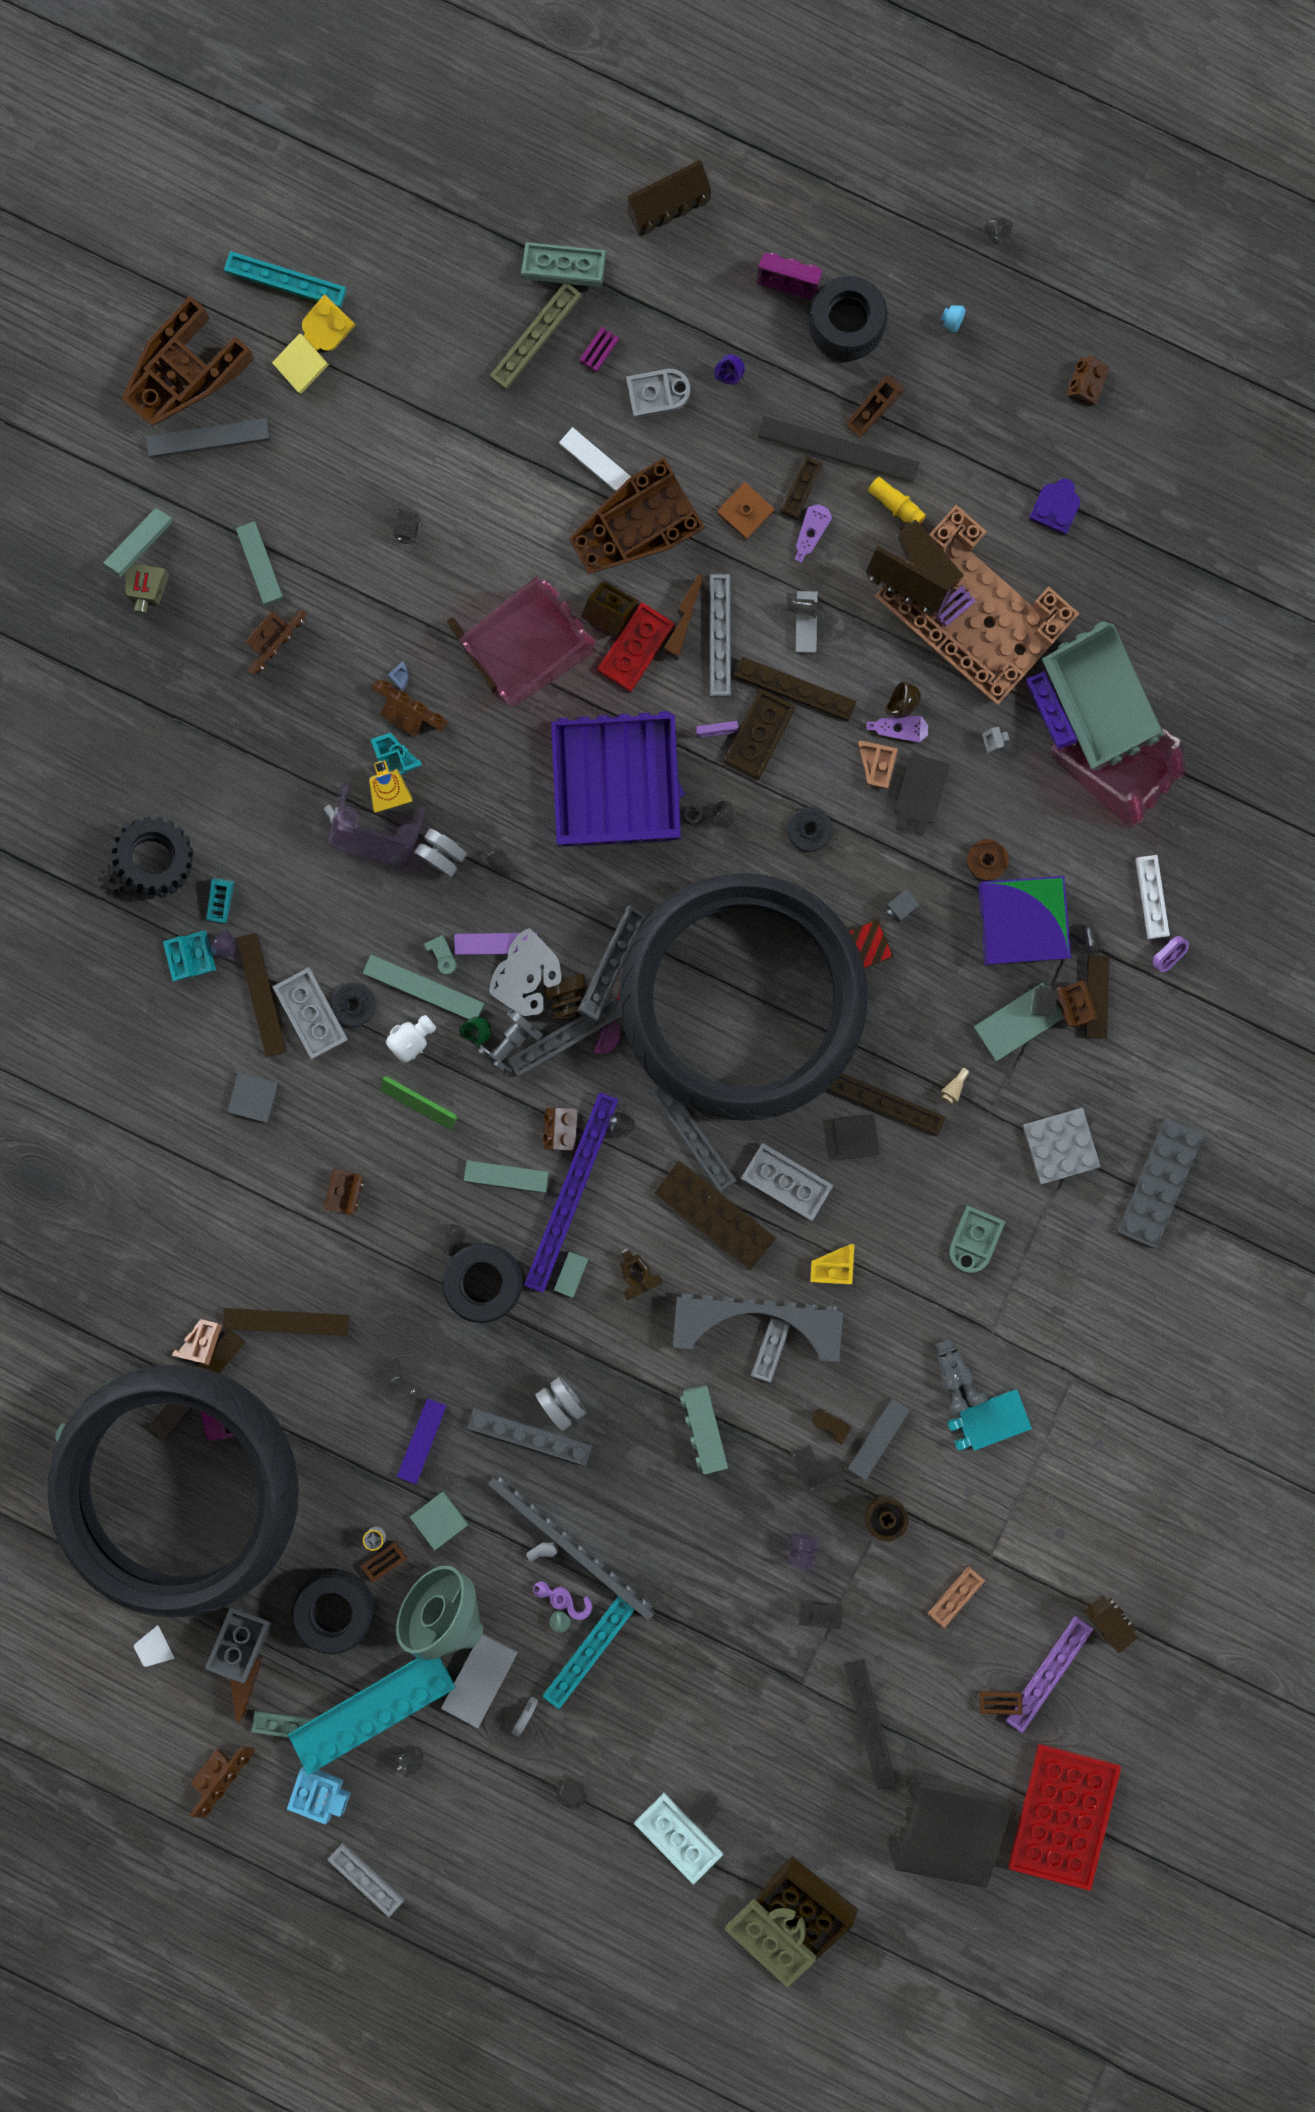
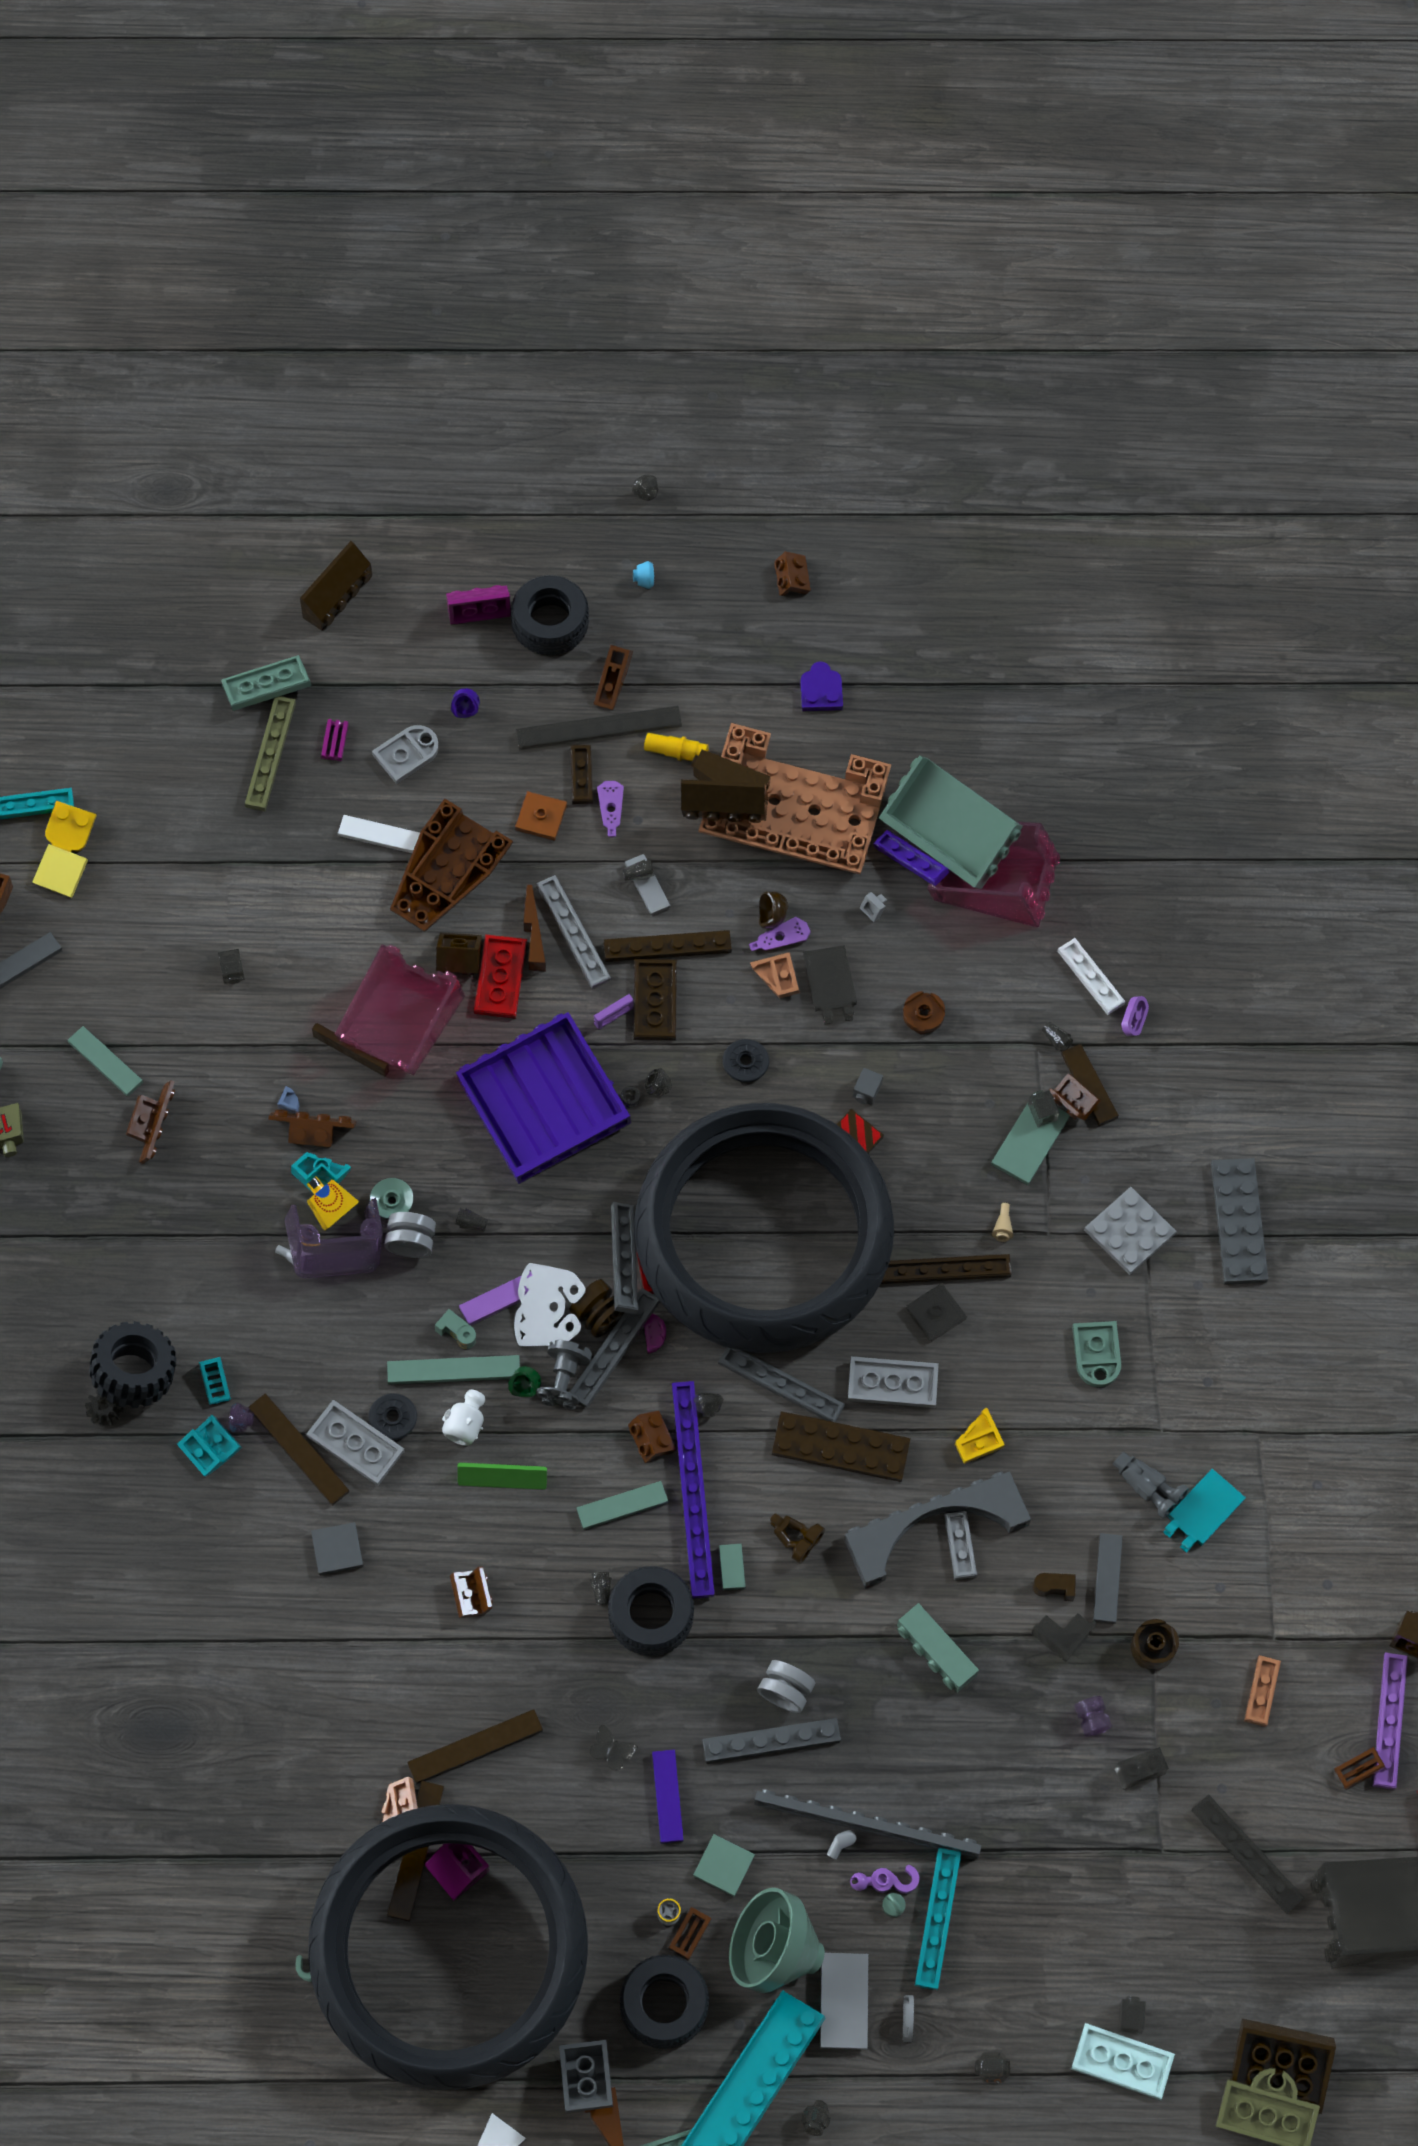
camera: 30 degrees left, 20 degrees down
(443, 799) = (392, 1189): none -> sand green dish
(965, 595) = (780, 796): medium lavender tile -> none
(1024, 920) = (986, 1048): dark purple tile -> none

